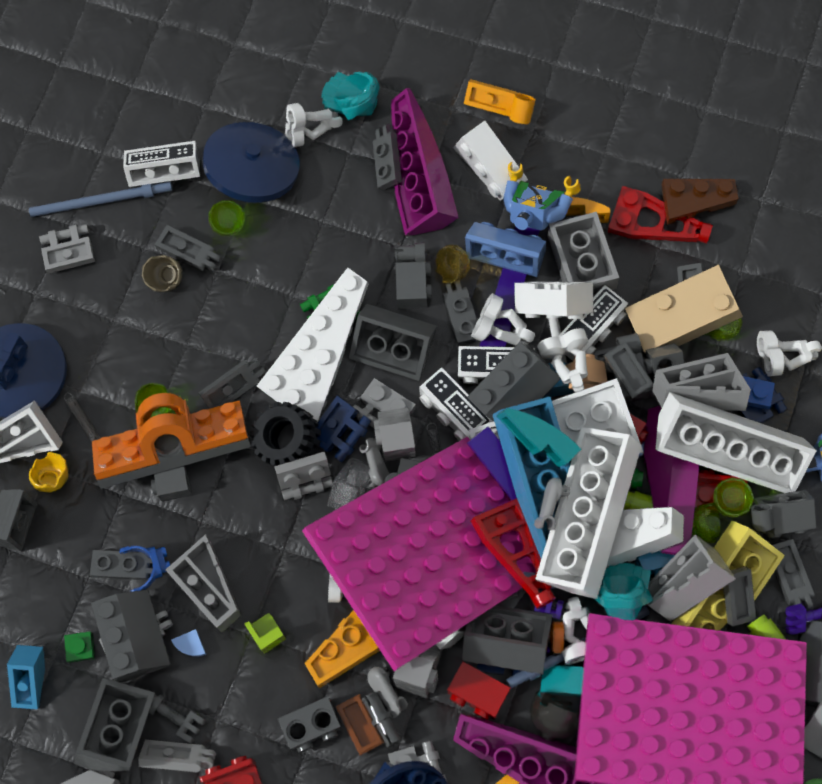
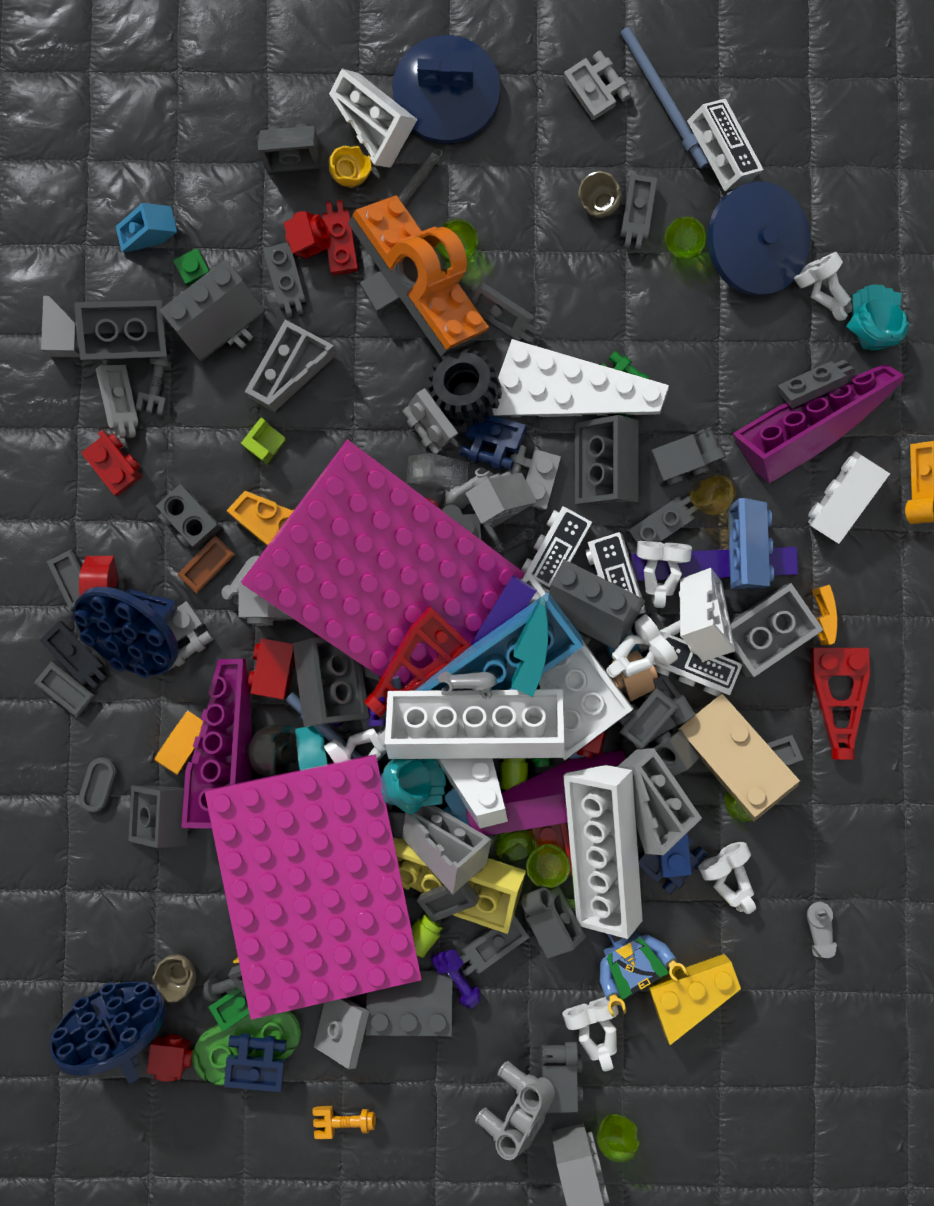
camera: 70 degrees right, 15 degrees up
(93, 530) = (306, 234): none -> red brick
(108, 505) = (340, 241): none -> red hinge
(157, 558) = (296, 309): blue helmet -> none
(190, 644) = (229, 373): light blue tile -> none
(381, 719) = (215, 584): dark grey pin -> none
(534, 204) = (809, 561): medium blue torso -> none
(557, 636) = (349, 729): orange tile -> none
(693, 196) = (882, 729): reddish brown wing -> none

